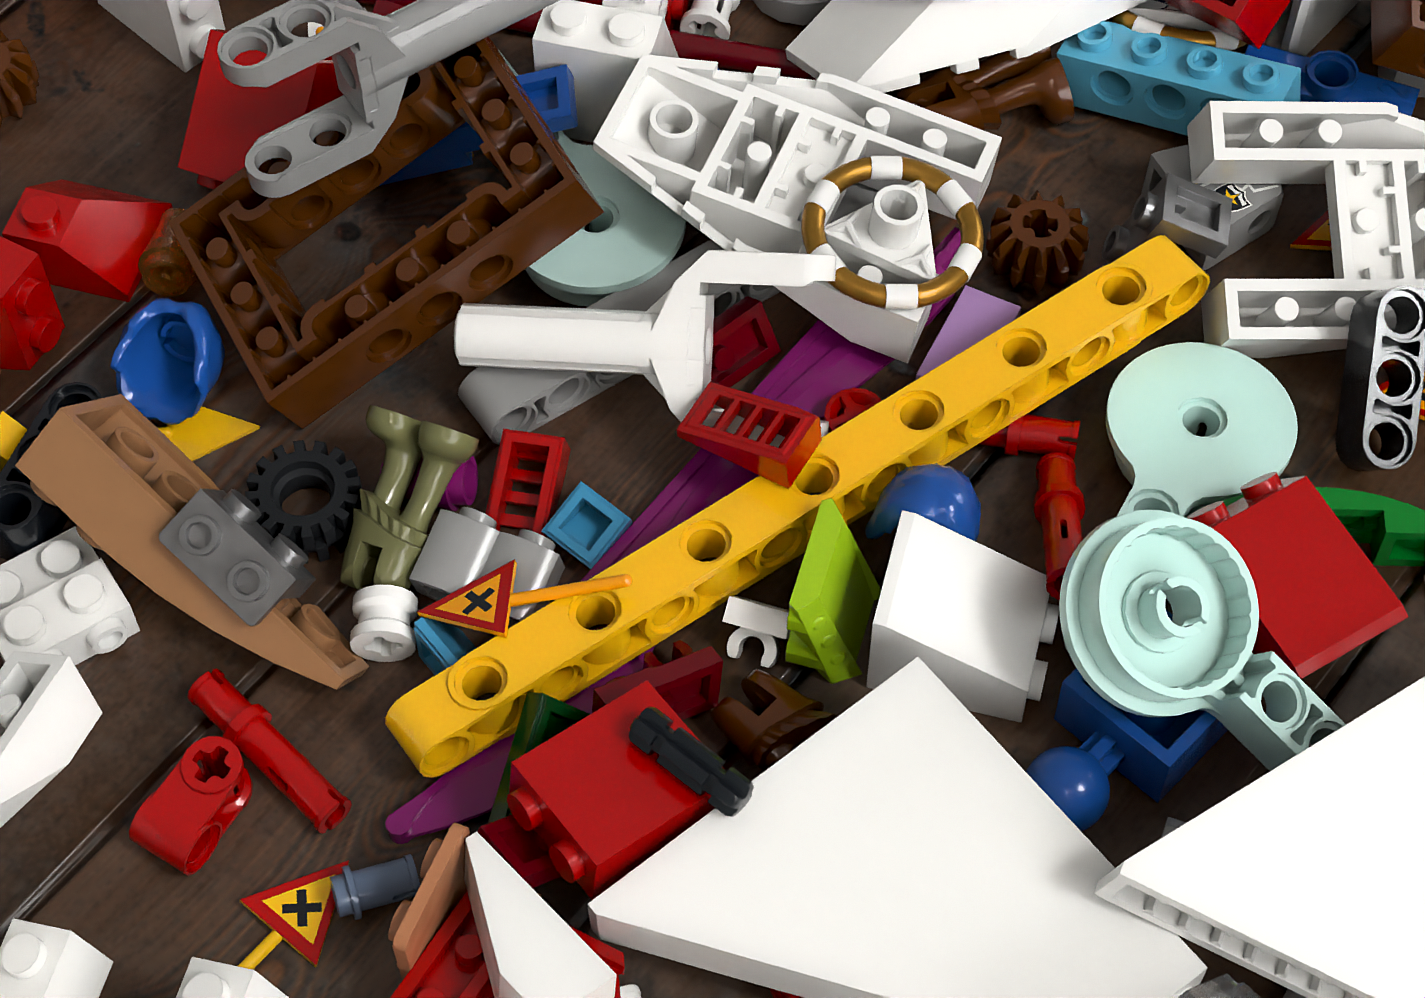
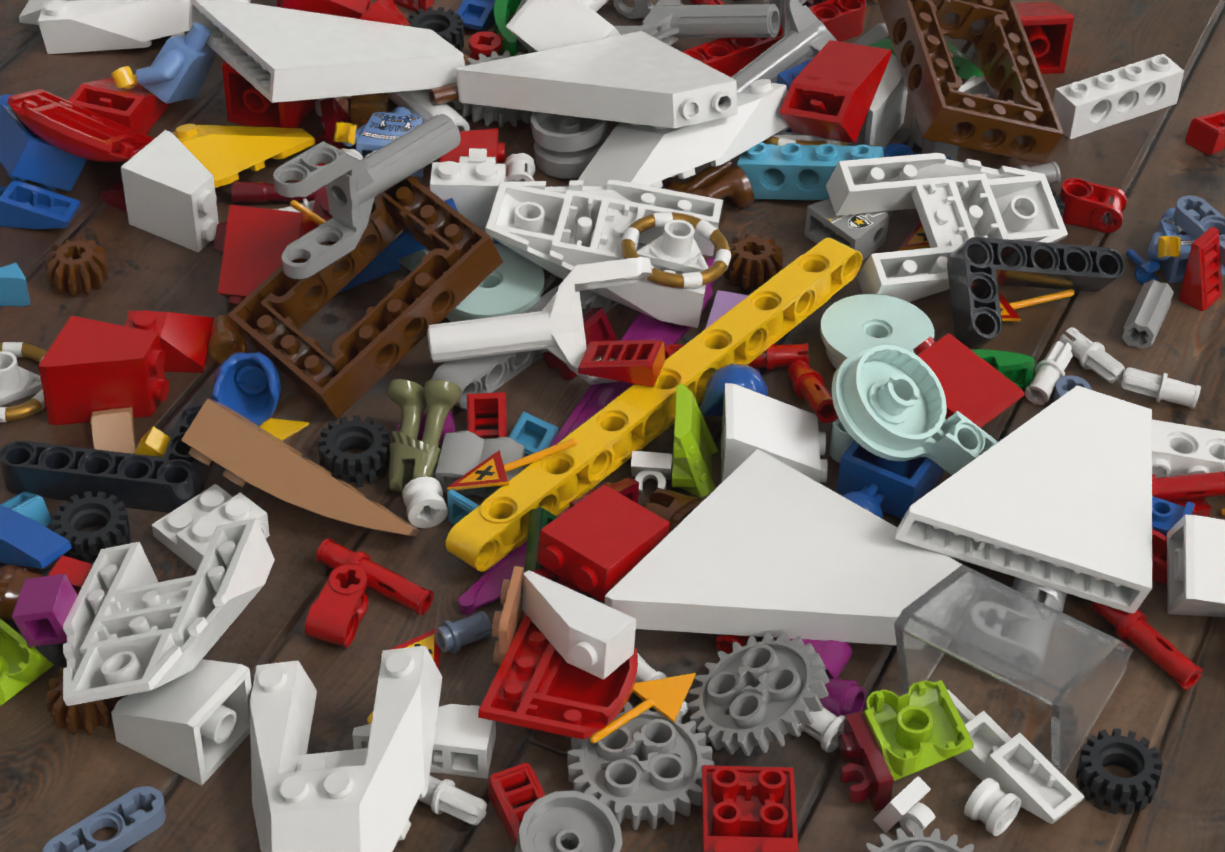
camera: 15 degrees left, 15 degrees down
(235, 555) = (331, 468): flat silver bracket -> none
(691, 761) = (645, 513): black axle -> none
(1179, 211) = (836, 225): flat silver bracket -> none

